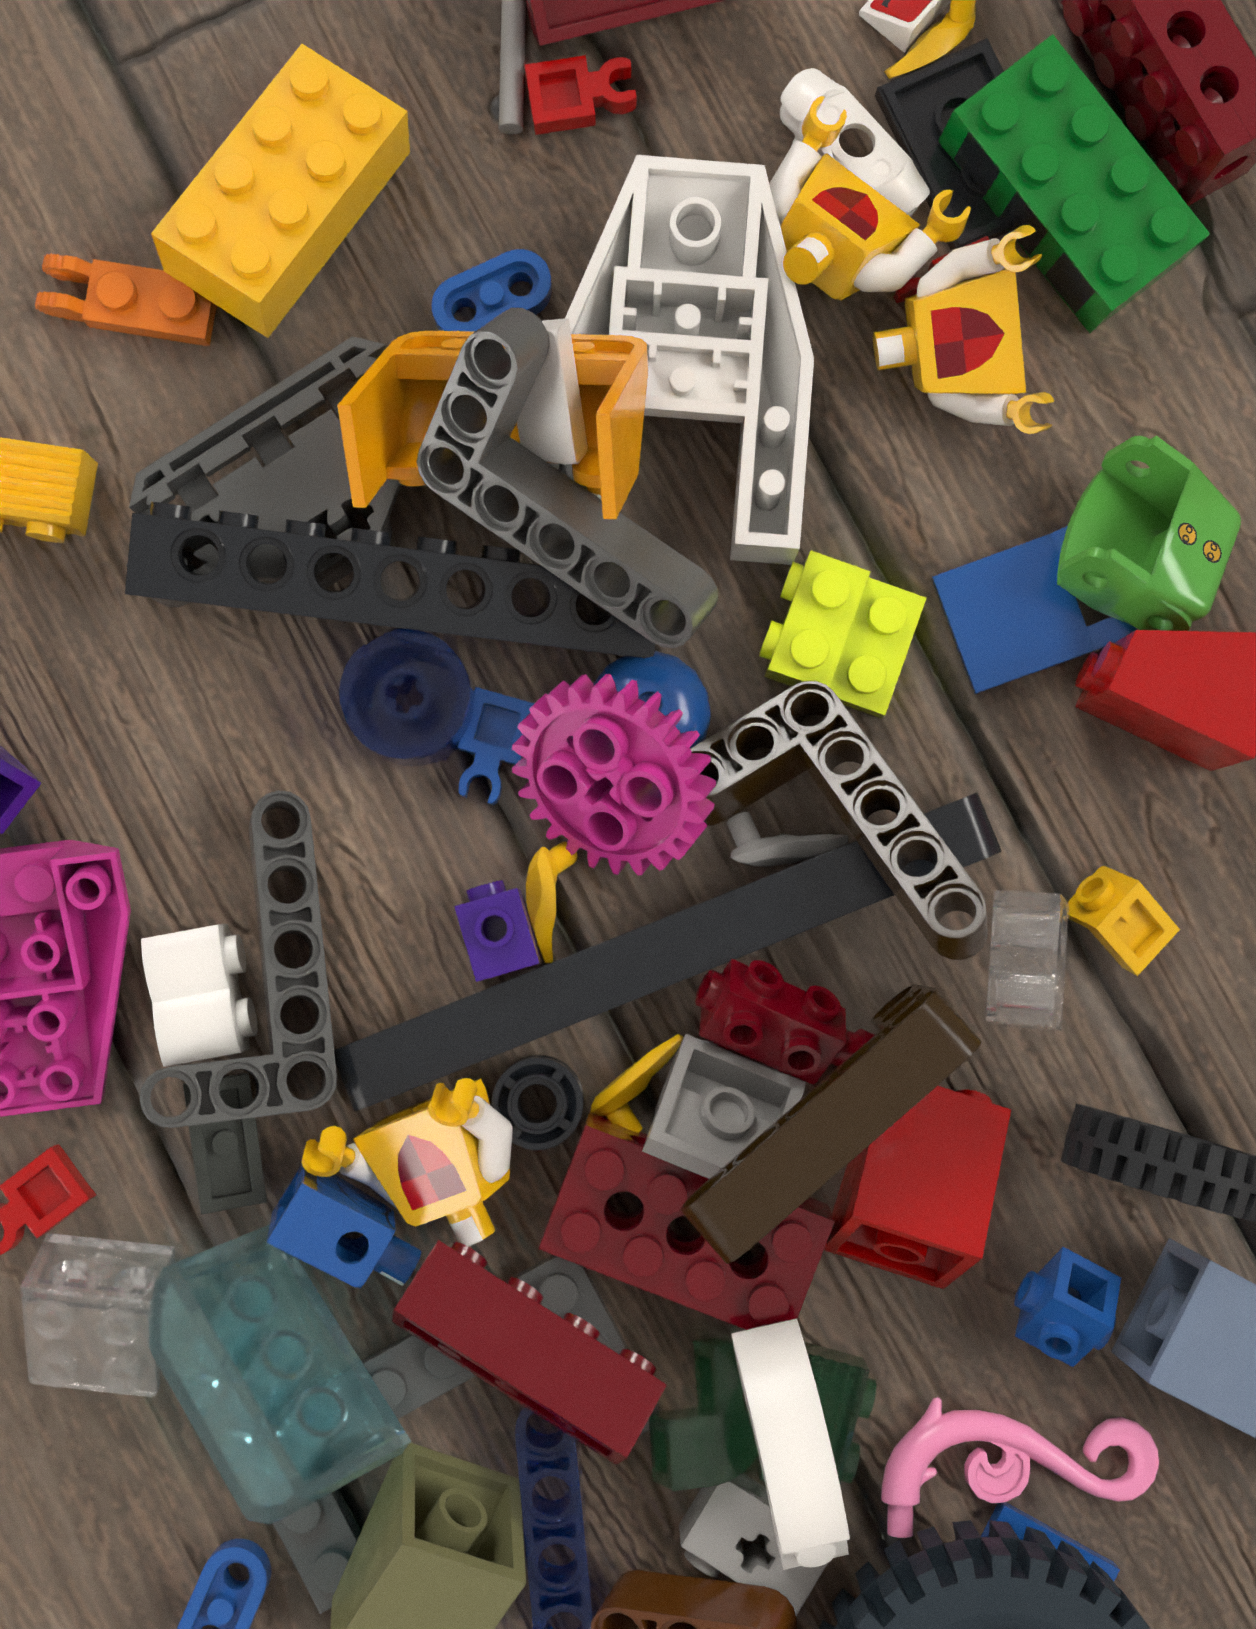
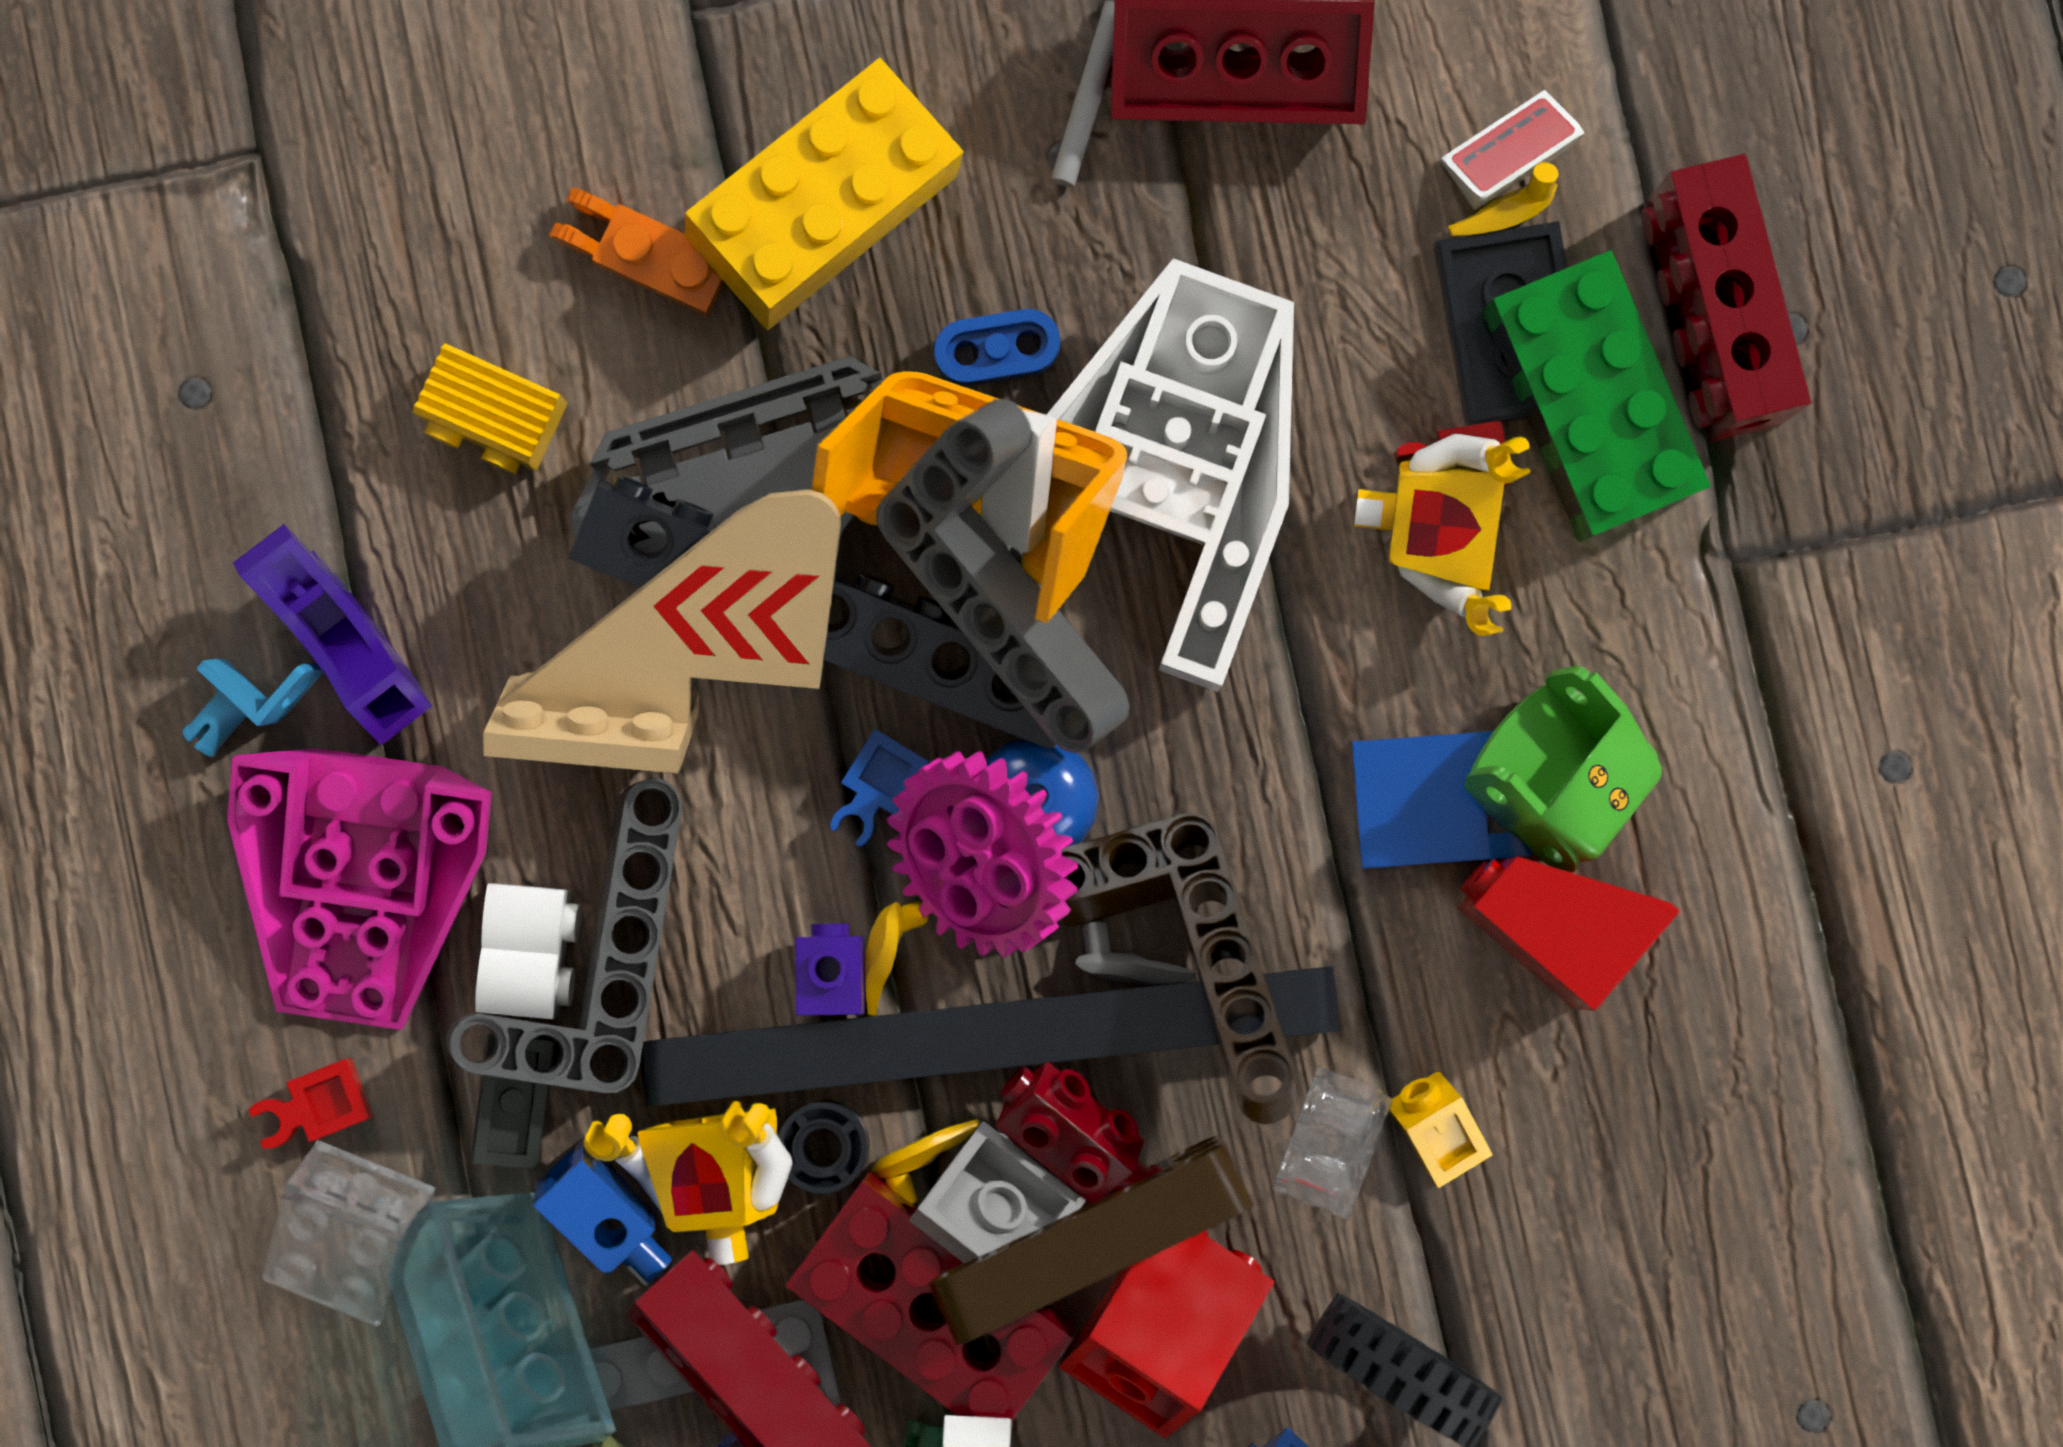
camera: 20 degrees right, 0 degrees up
(298, 602) = (729, 609): none -> tan piece
(391, 667) = (815, 759): clear blue brick -> none
(566, 93) = (1124, 166): red plate -> none
(842, 228) = (1356, 380): torso -> none
(842, 632) = (1247, 774): neon yellow plate -> none
(885, 169) = (1411, 338): white piece -> none

